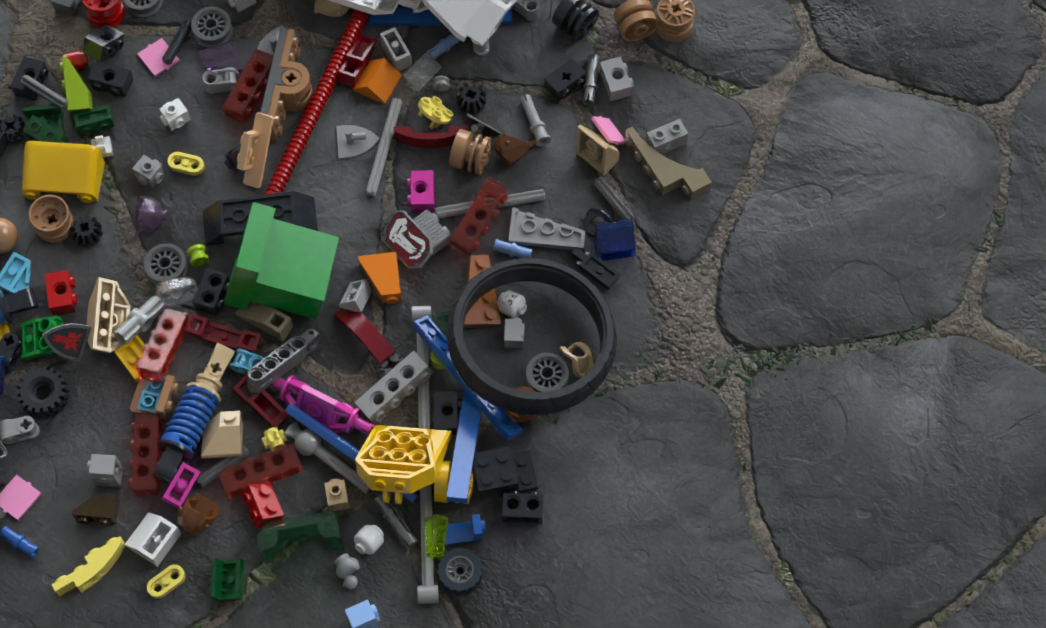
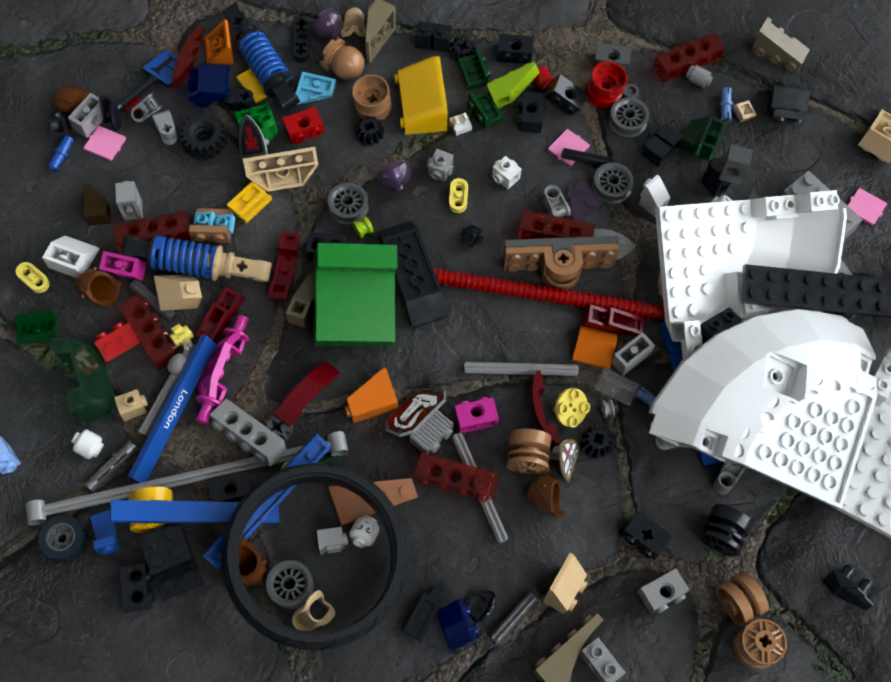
camera: 75 degrees right, 0 degrees up
(42, 131) = (457, 70): dark green bracket -> none
(44, 92) = (498, 59): dark grey axle -> none
(99, 563) = (40, 216): light yellow slope -> none
(139, 320) = (284, 193): light grey piece -> none
(162, 346) = (250, 221): clear red brick -> none
(176, 291) = (321, 217): clear piece -> none
(244, 361) = (257, 296): medium azure piece -> none
(254, 150) = (478, 244): light nougat bracket -> none
(281, 360) = (256, 314): dark grey piece -> none
(345, 568) = (57, 429): light grey animal -> none
(354, 141) = (522, 340): light grey shield -> none
(356, 295) = (344, 376): light grey slope -> none
(401, 459) = (134, 453): yellow hinge -> none
(435, 534) = (96, 499): clear neon green slope -> none
(512, 249) = (429, 520): medium blue pin -> none
(534, 231) = (456, 542): light grey wing -> none
(537, 126) = (581, 517): light grey pin -> none
(590, 86) = (659, 564): flat silver pin -> none
(608, 130) = (594, 595): bright pink piece -> none

